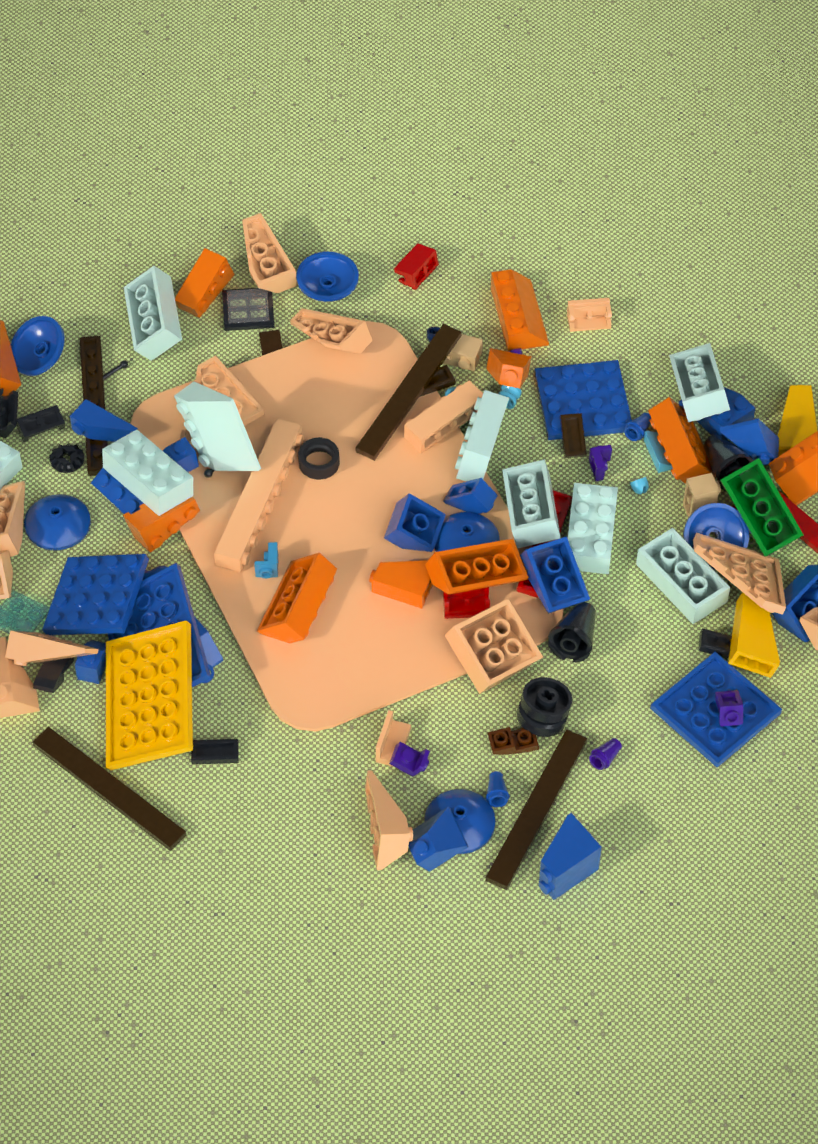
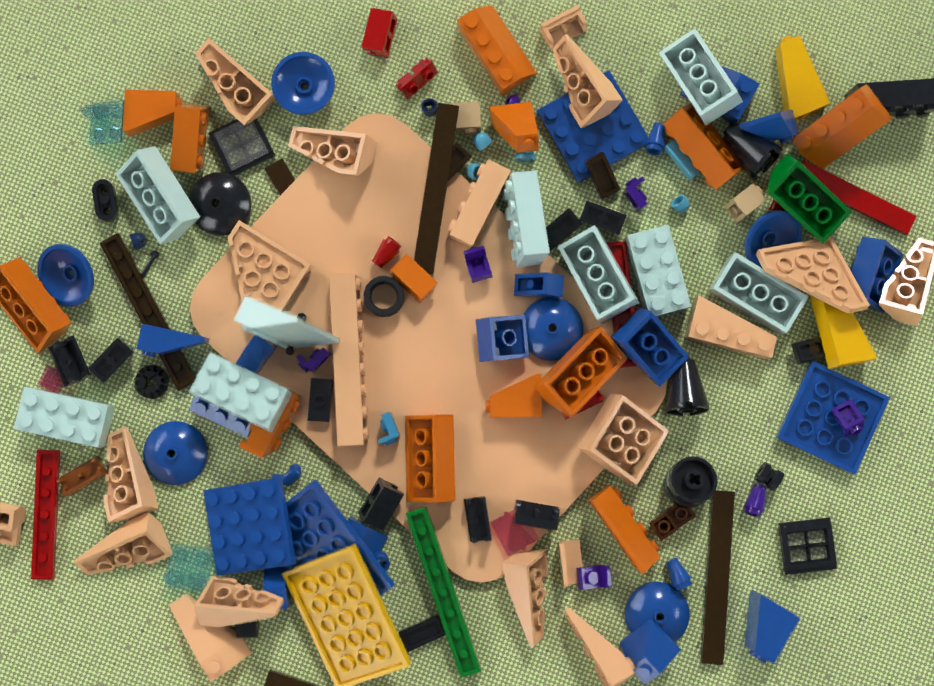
camera: 25 degrees left, 30 degrees up
(101, 313) = (105, 201): none -> black plate
(113, 347) = (138, 240): none -> dark blue hinge
(136, 248) = (106, 122): none -> clear light blue hinge
(176, 253) = (148, 109): none -> orange slope
(193, 350) = (233, 206): none -> black dish
(216, 520) = (320, 400): none -> black plate
(228, 486) = (317, 358): none -> dark purple bracket
(230, 622) = (380, 504): none -> black hinge
(253, 718) = (443, 591): none -> green plate
(319, 666) = (477, 519): none -> black hinge
(339, 424) = (387, 250): none -> red cone
(340, 738) = (524, 581): none -> light nougat wedge
(349, 692) = (511, 535): none -> clear pink piece
(353, 452) = (413, 278): none -> orange hinge
(375, 683) = (536, 515): none -> black hinge
(420, 460) = (477, 264): none -> dark purple bracket
(434, 310) = (424, 72): none -> red hinge
(459, 725) = (624, 528): none -> orange slope
(471, 373) = (481, 140): none -> medium azure hinge
(518, 458) = (562, 228): none -> black plate
(560, 466) = (602, 217): none -> black hinge
(589, 359) = (588, 88): none -> light nougat wedge
(628, 735) = (769, 476): none -> black wheel
(639, 598) = (725, 330): none -> light nougat wedge
(642, 813) = (807, 546): none -> black piece

